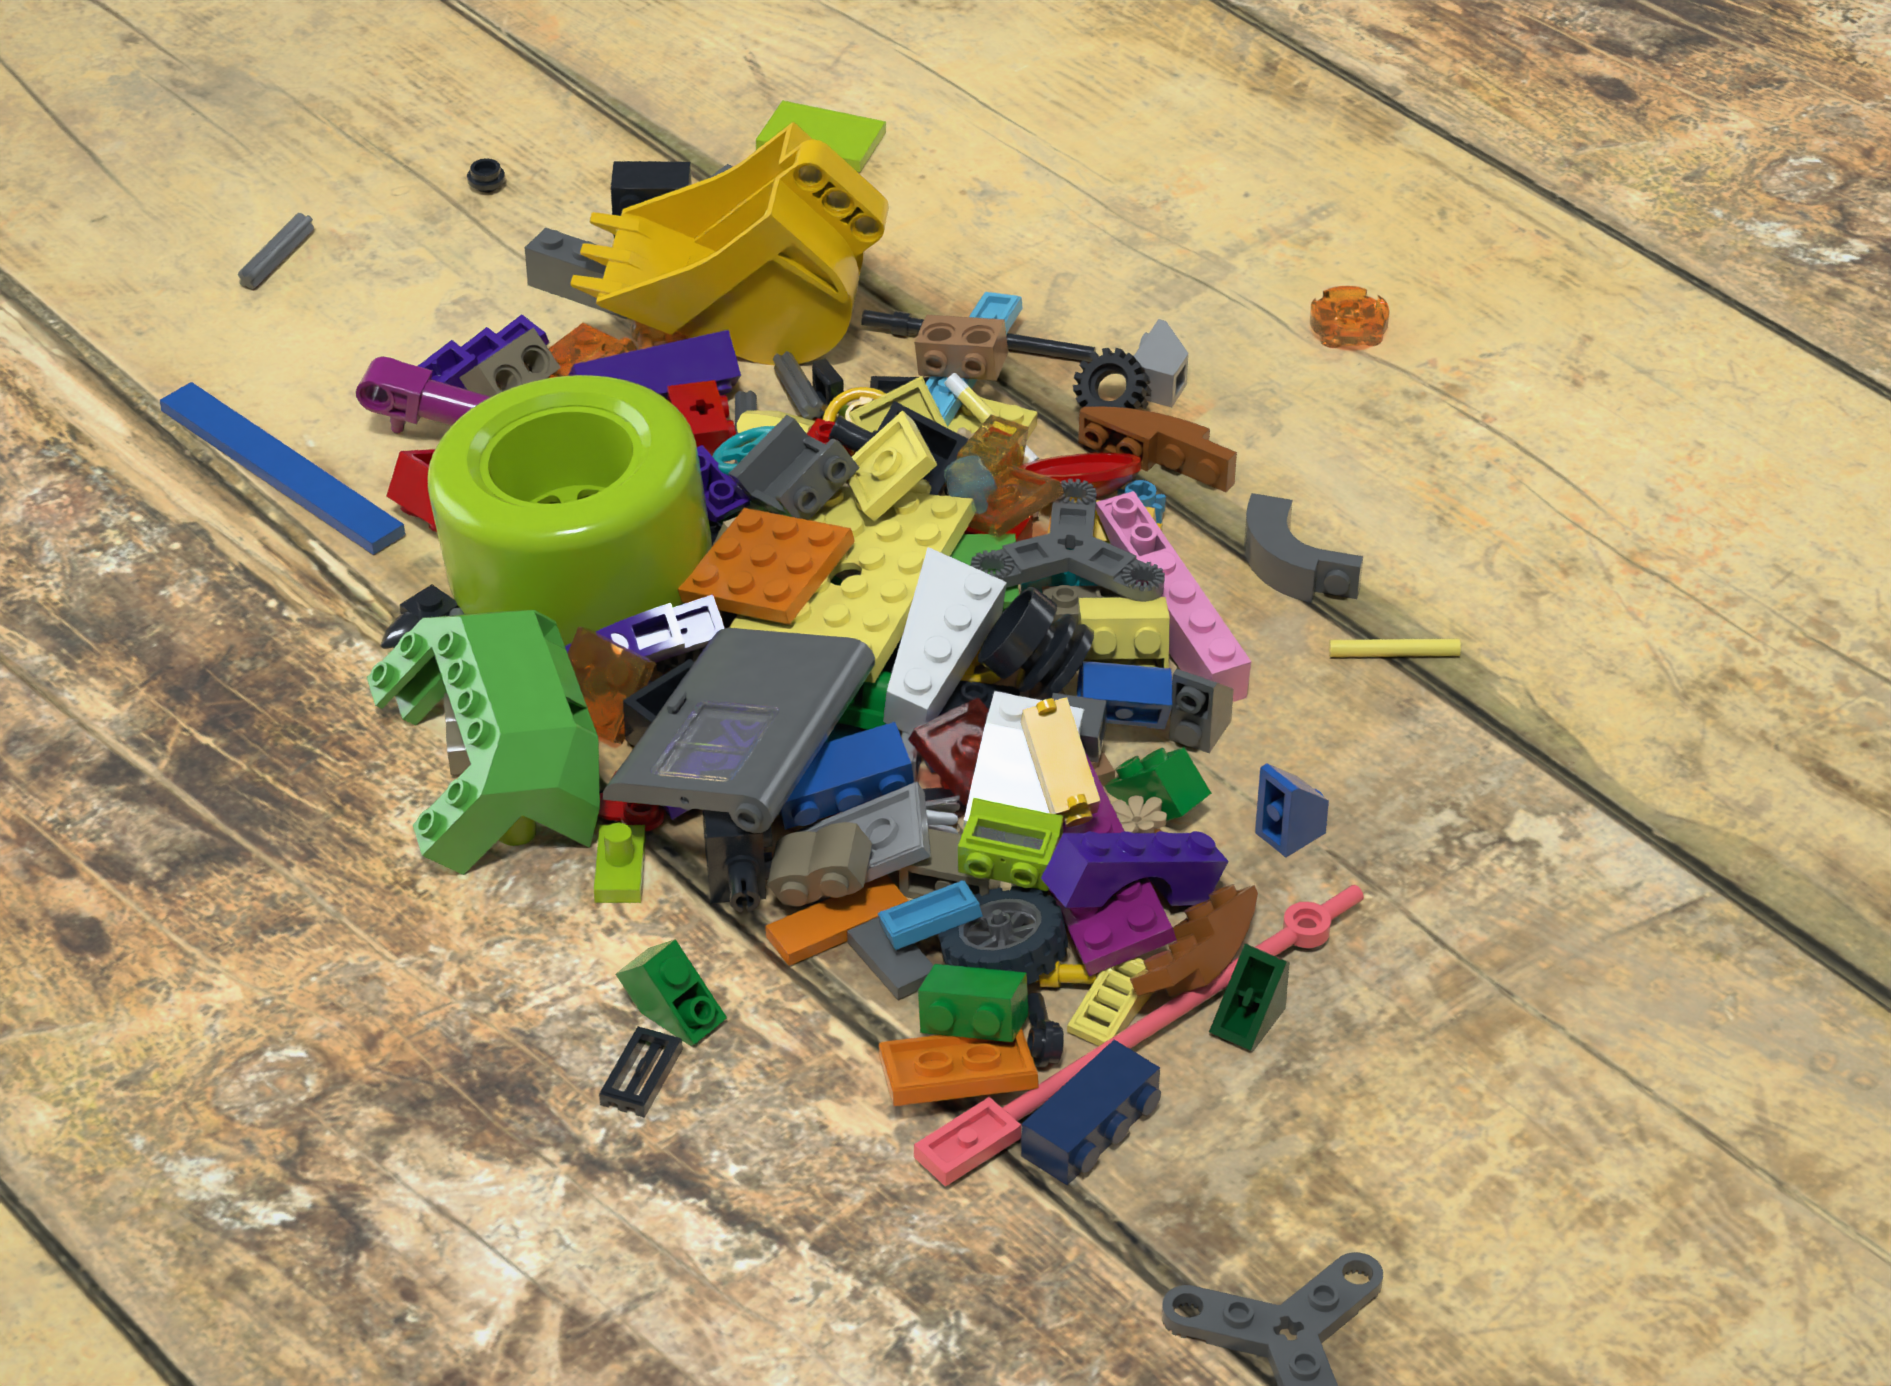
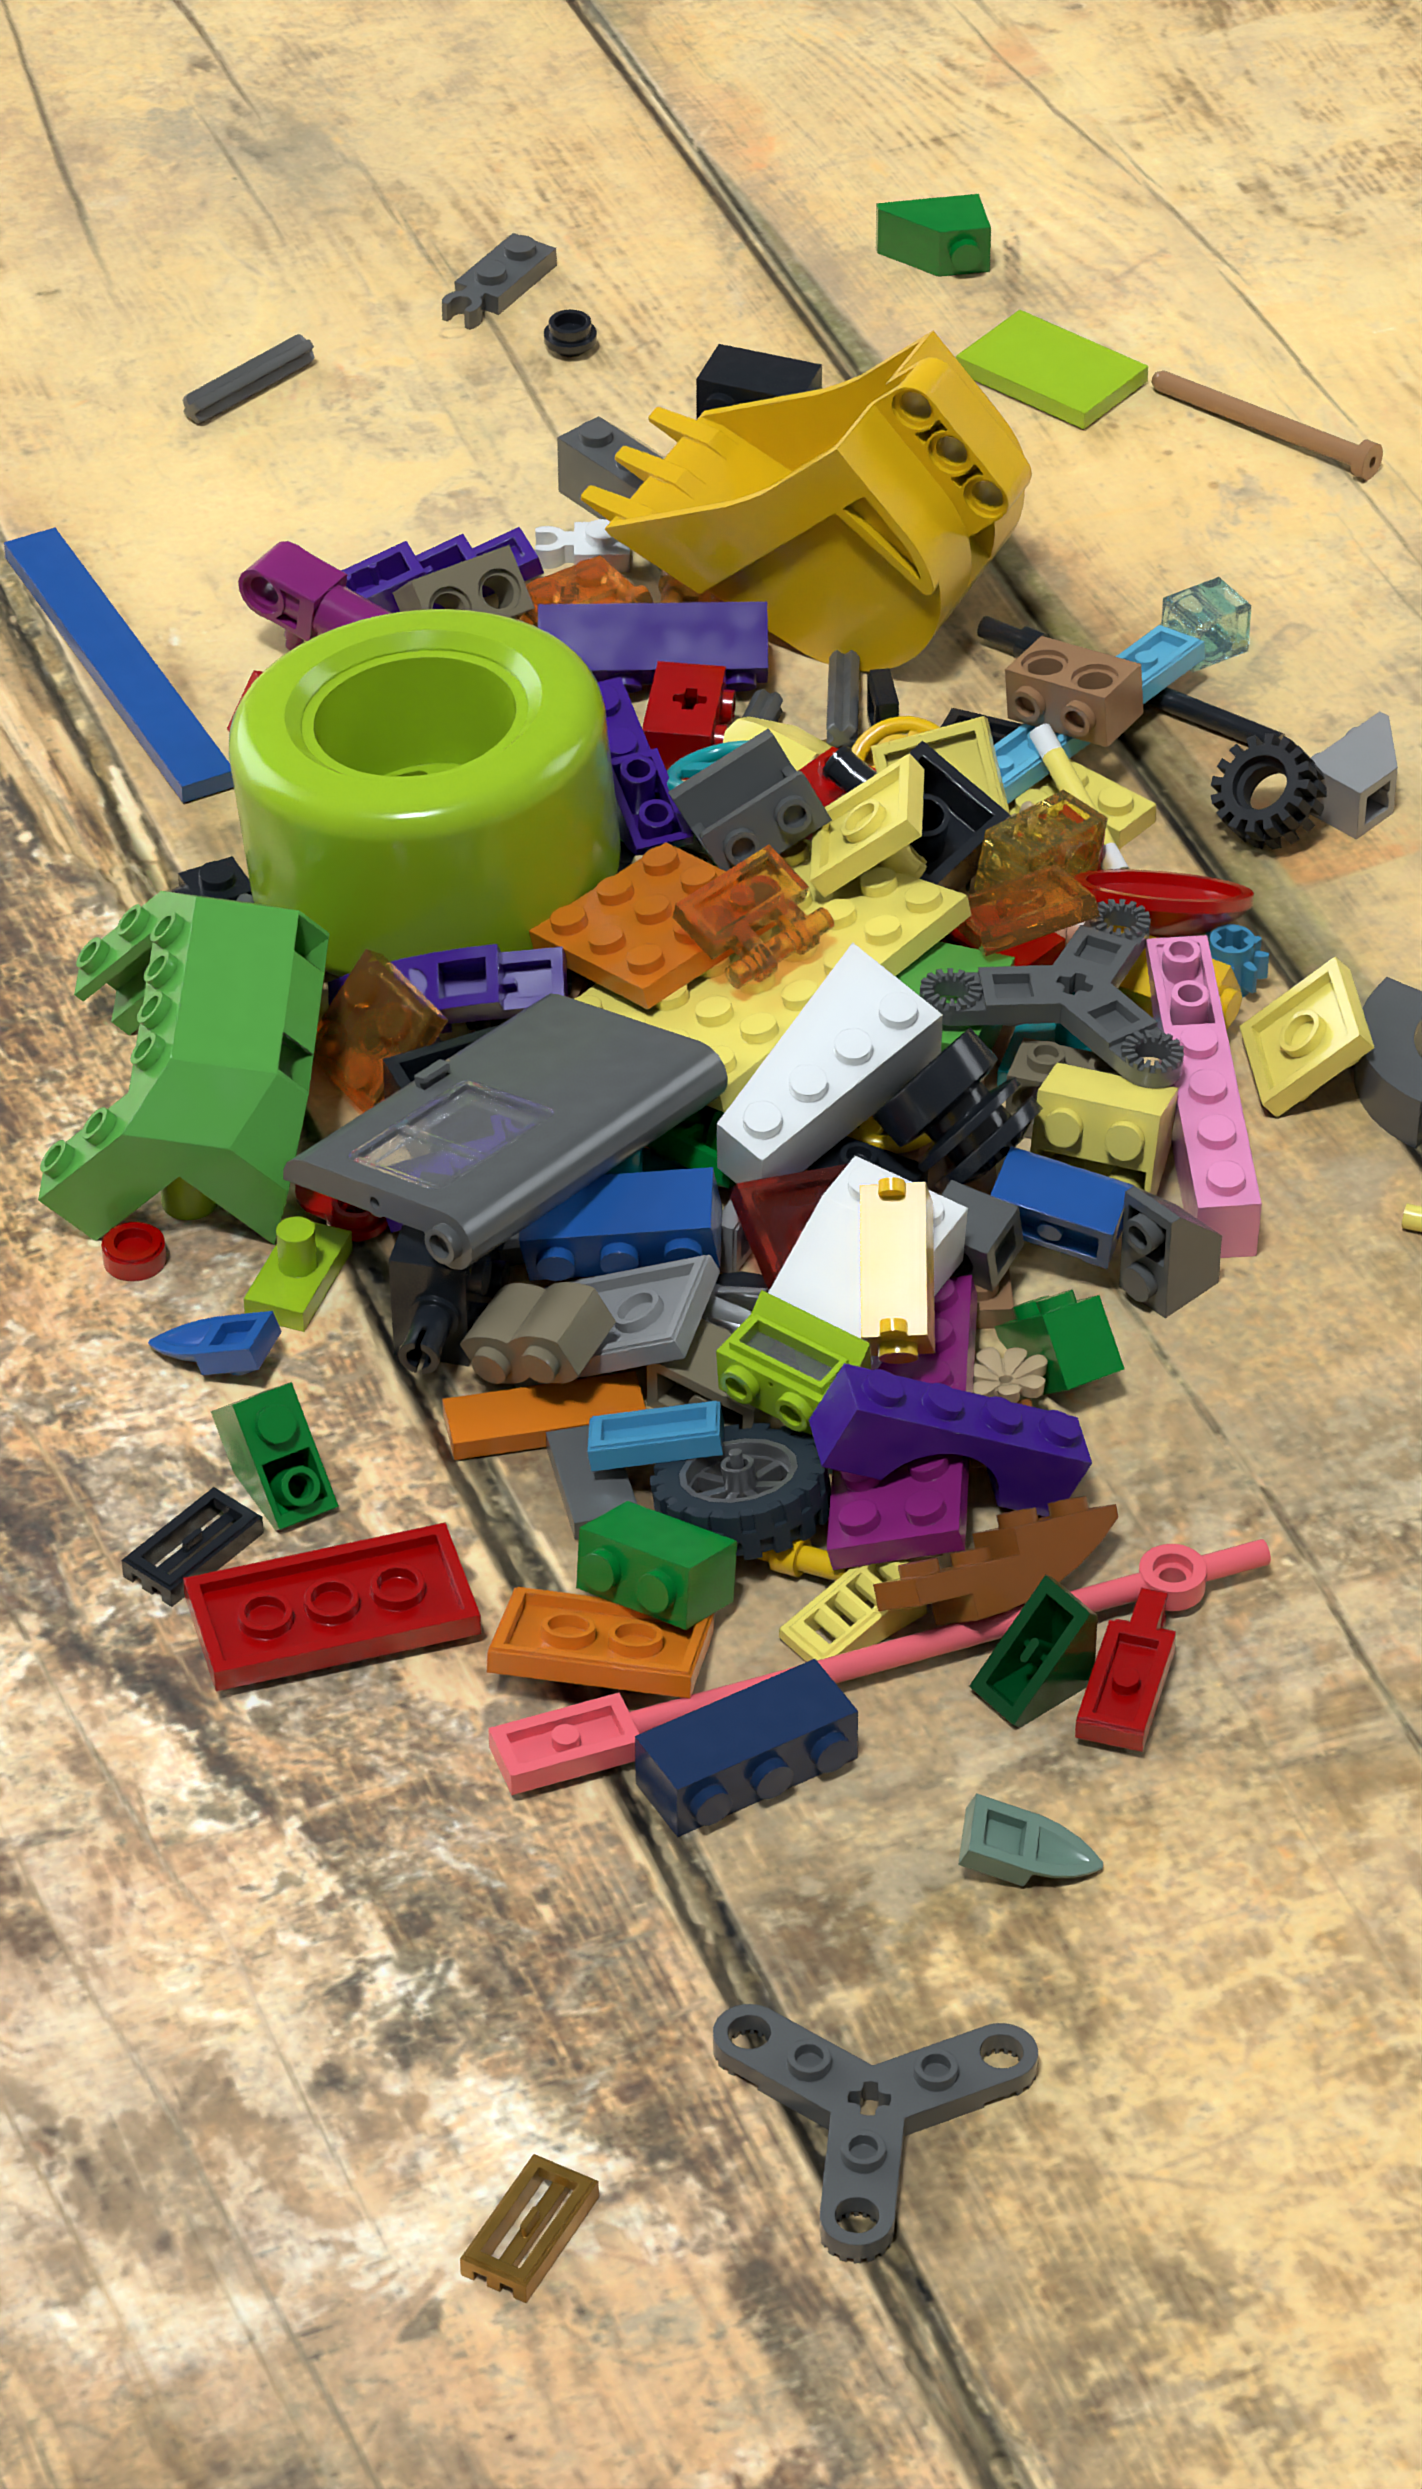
camera: 20 degrees right, 0 degrees up
(416, 147) = (499, 279): none -> dark grey plate
(497, 875) = (134, 1251): none -> red tile
(568, 316) = (585, 542): none -> white plate
(593, 924) = (222, 1343): none -> blue plate
(703, 60) = (936, 234): none -> green slope
(760, 1088) = (331, 1606): none -> red plate
(832, 536) = (744, 901): none -> clear orange plate
(970, 479) = (983, 872): clear light blue piece -> none
(1013, 277) = (1213, 615): none -> clear light blue brick
(1046, 1036) = (734, 1639): black plate -> none
(1054, 155) = (1363, 458): none -> medium nougat bar
(1159, 440) = (1303, 877): dark orange slope -> none
(1219, 543) = (1306, 1037): none -> light yellow plate
(1288, 811) = (1221, 1416): blue slope -> none
(1299, 1129) = (1020, 1844): none -> sand green plate
(1313, 998) = (1128, 1676): none -> red hinge

